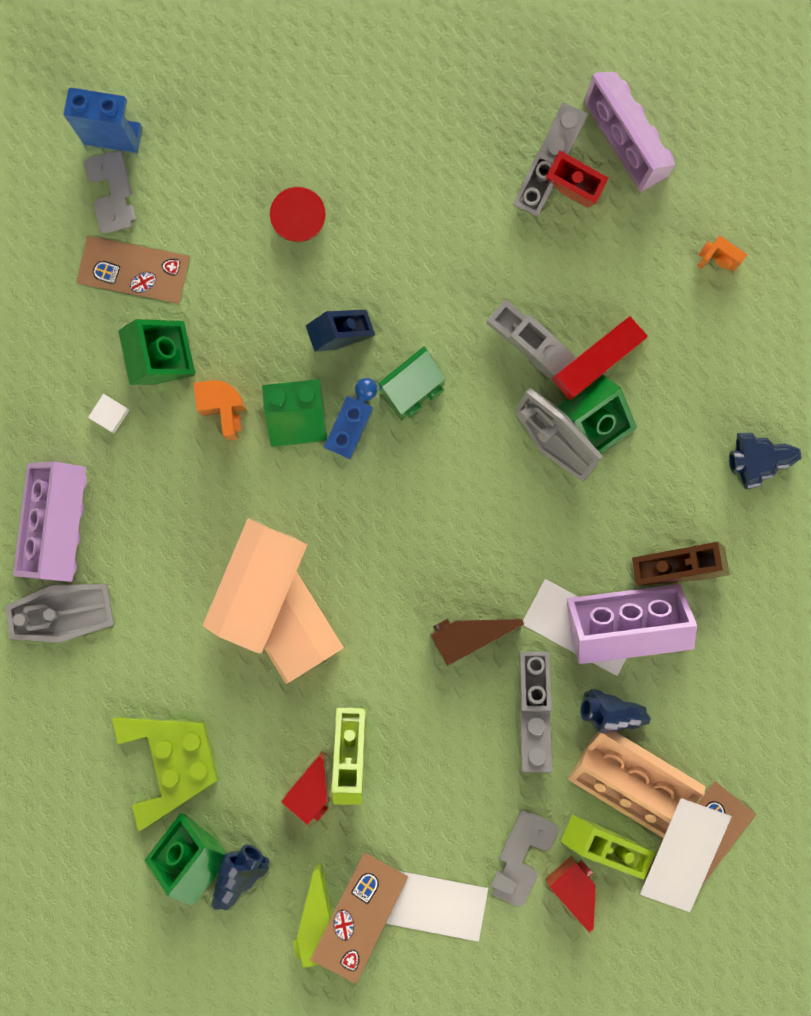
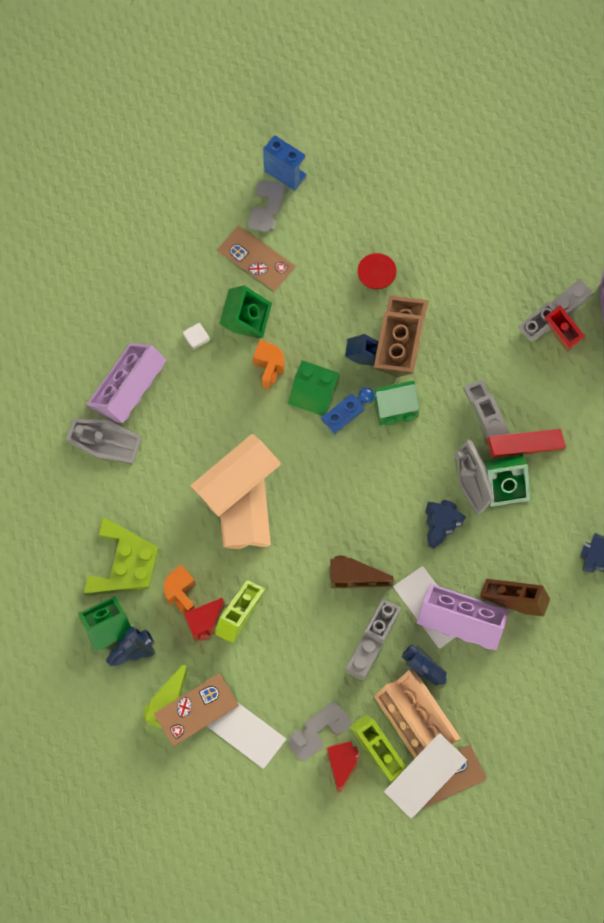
camera: 30 degrees right, 15 degrees down
(251, 769) = (176, 586): none -> orange brick
(372, 288) = (400, 335): none -> medium nougat slope
(543, 510) = (442, 520): none -> dark blue rock

